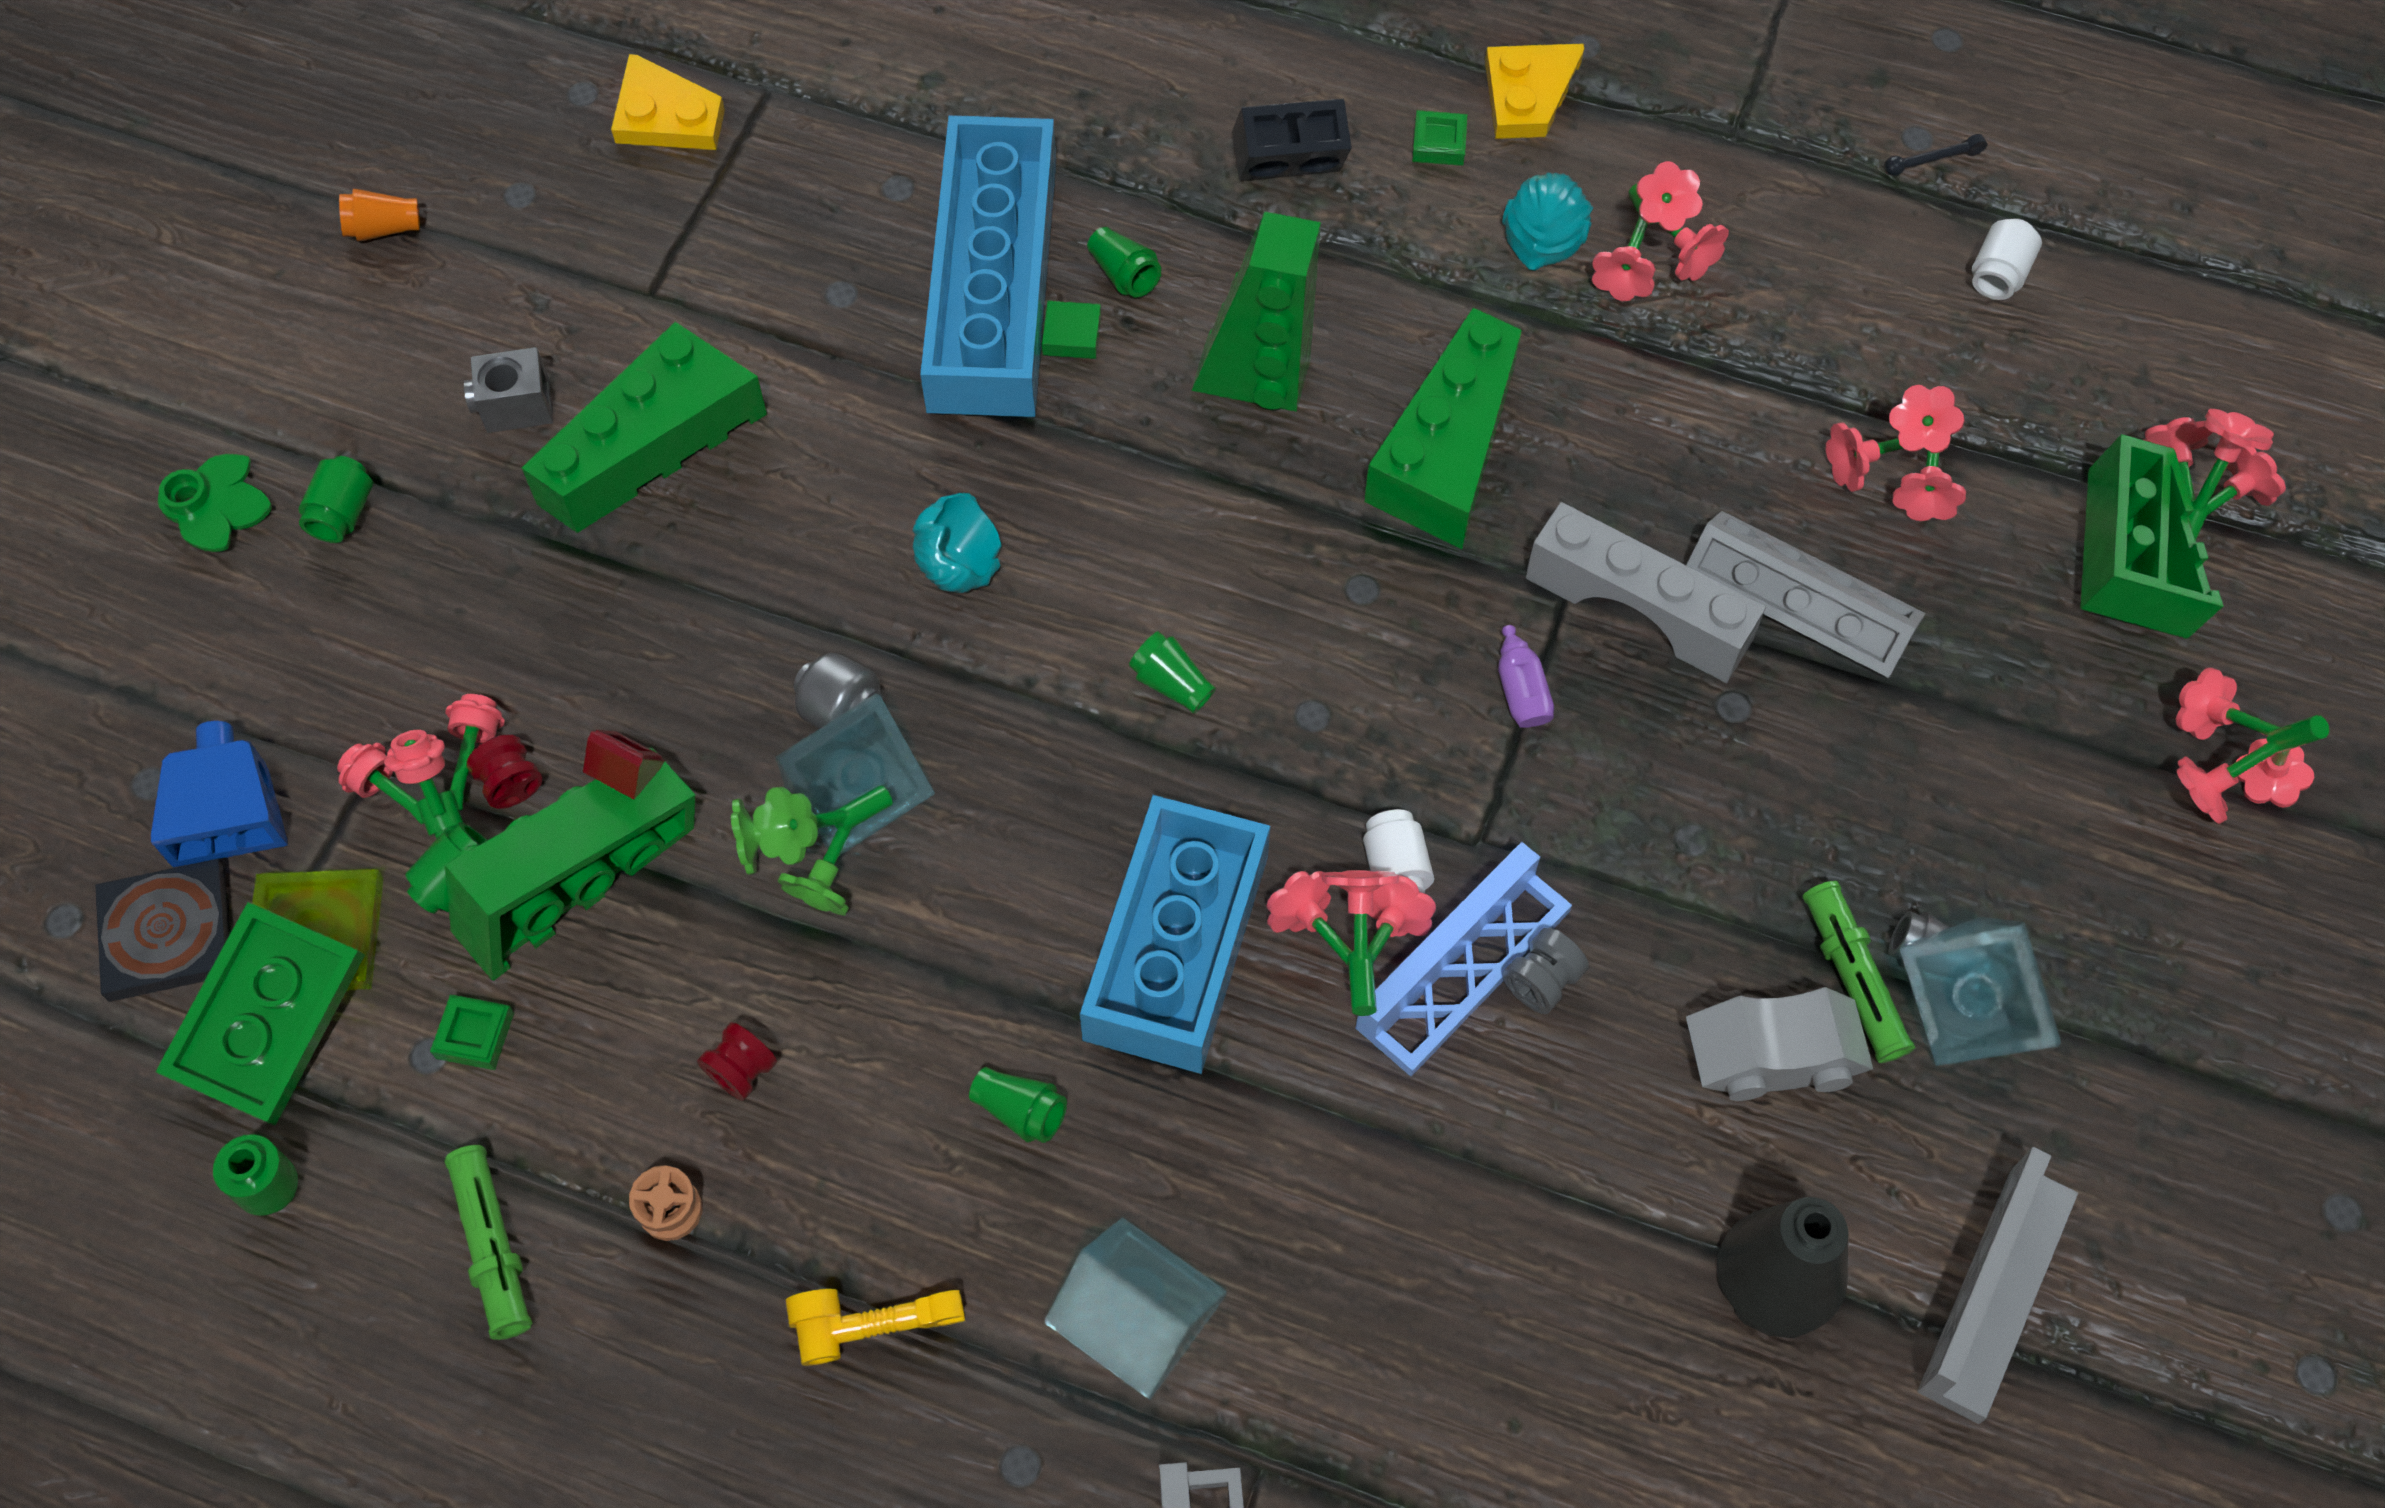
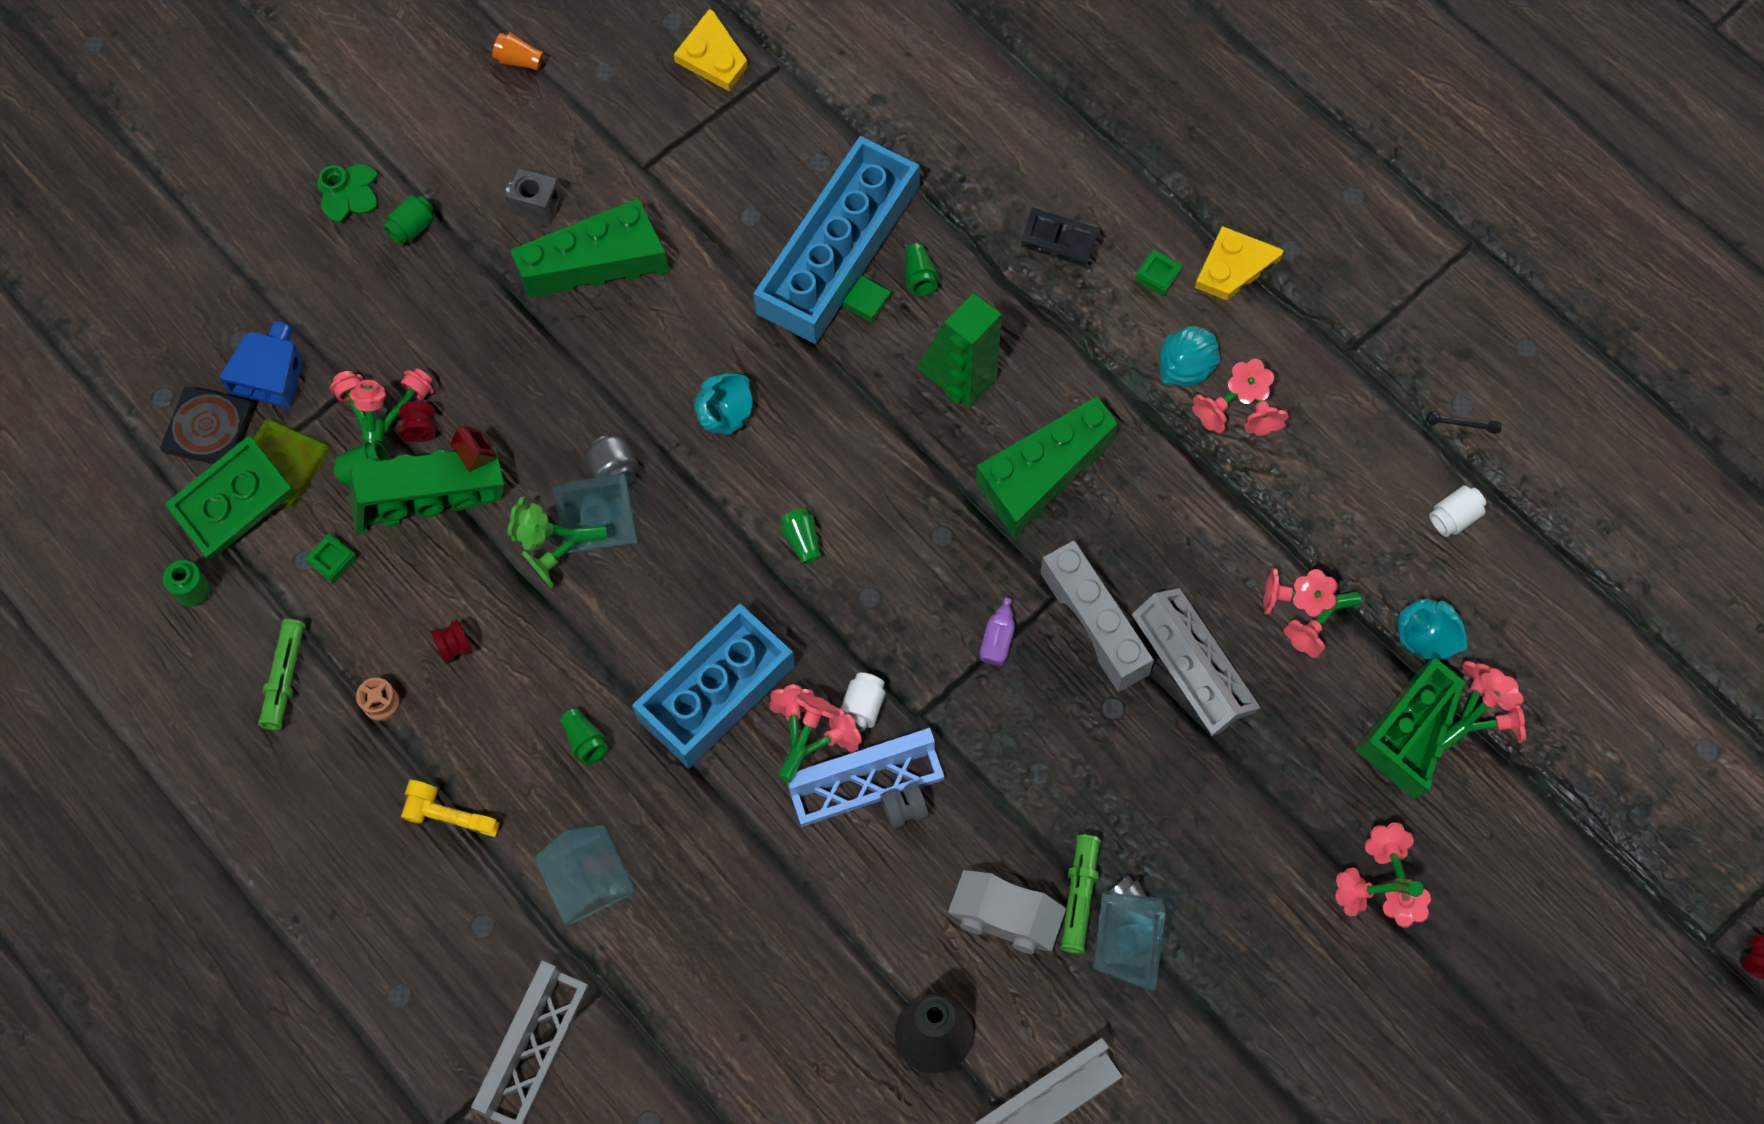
camera: 30 degrees right, 5 degrees up
(2080, 411) = (1432, 629): none -> teal hair

